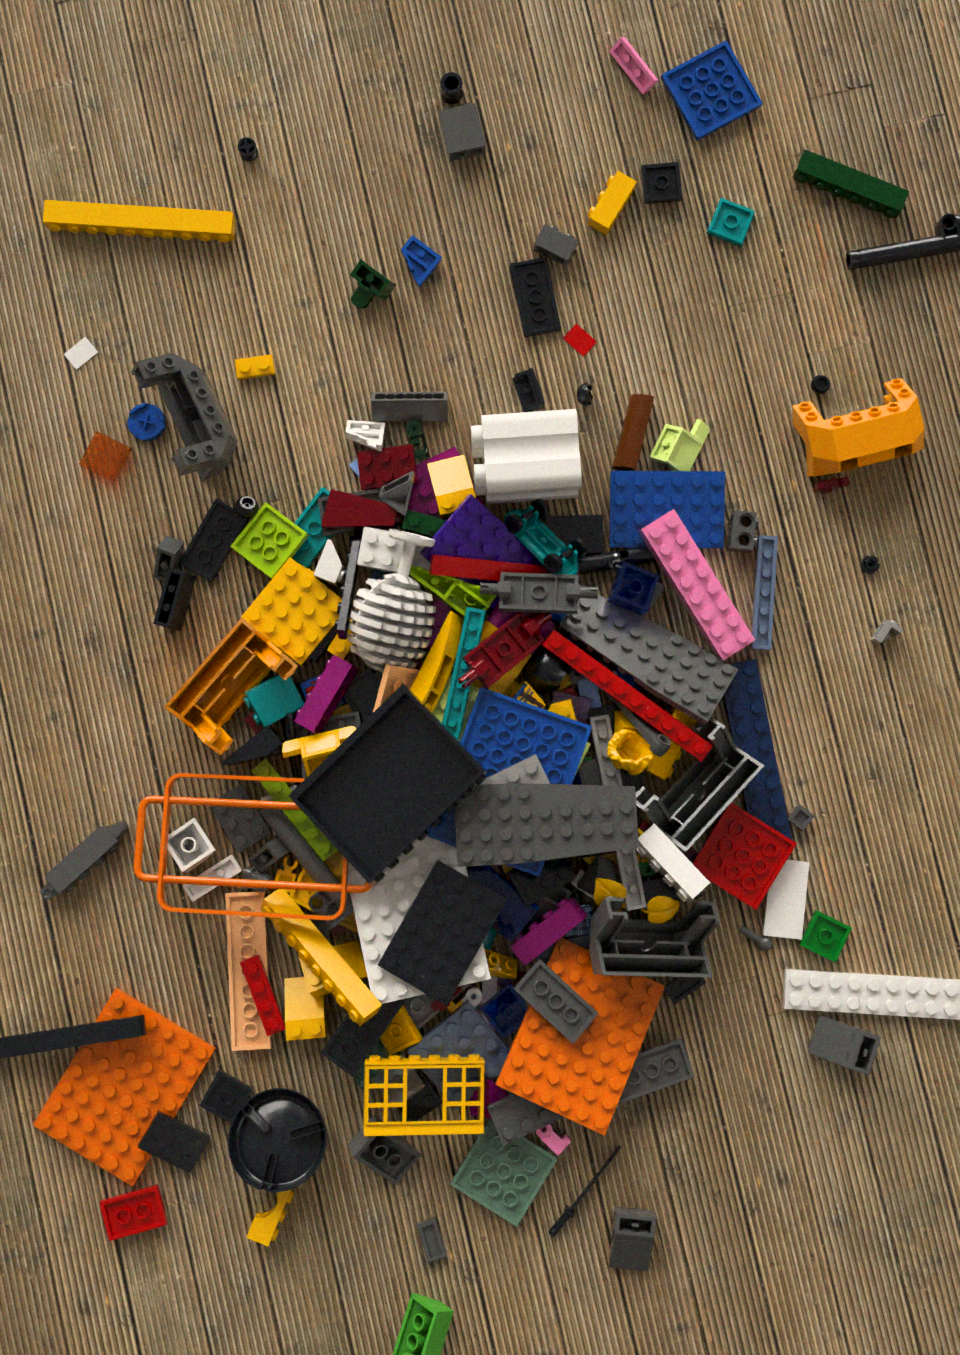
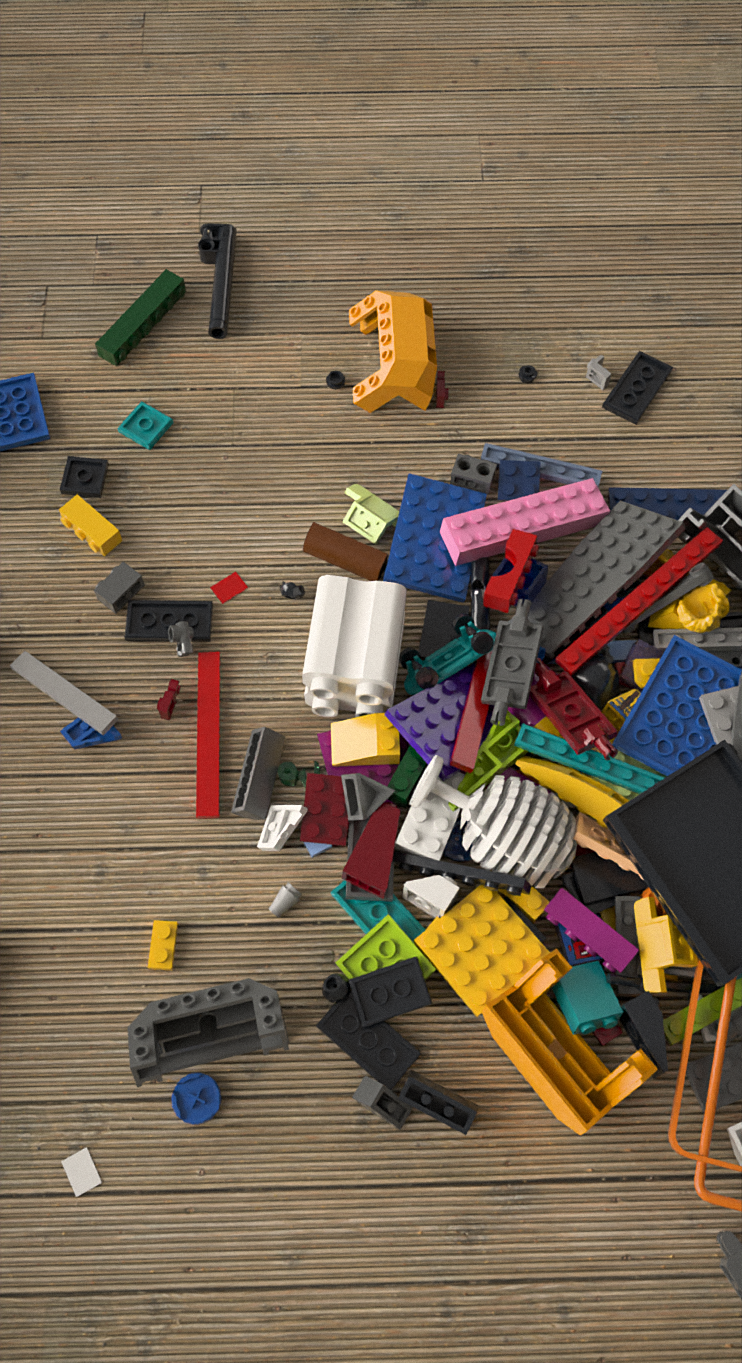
camera: 75 degrees left, 20 degrees down
(105, 456) = (228, 1164): clear orange plate -> none
(248, 547) = (390, 992): none -> black tile
(309, 452) = (285, 899): none -> light grey cone
(370, 284) = (102, 786): dark green brick -> none
(438, 356) = (208, 736): none -> red tile
(446, 227) = (64, 693): none -> light grey tile
(455, 315) = (167, 703): none -> dark red plate
(519, 310) = (182, 635): none -> dark grey plate
(528, 390) = (273, 645): black hinge -> none
(607, 573) = (502, 590): none -> red arch
(742, 574) = (518, 479): none -> dark blue plate
(879, 672) = (637, 387): none -> black tile

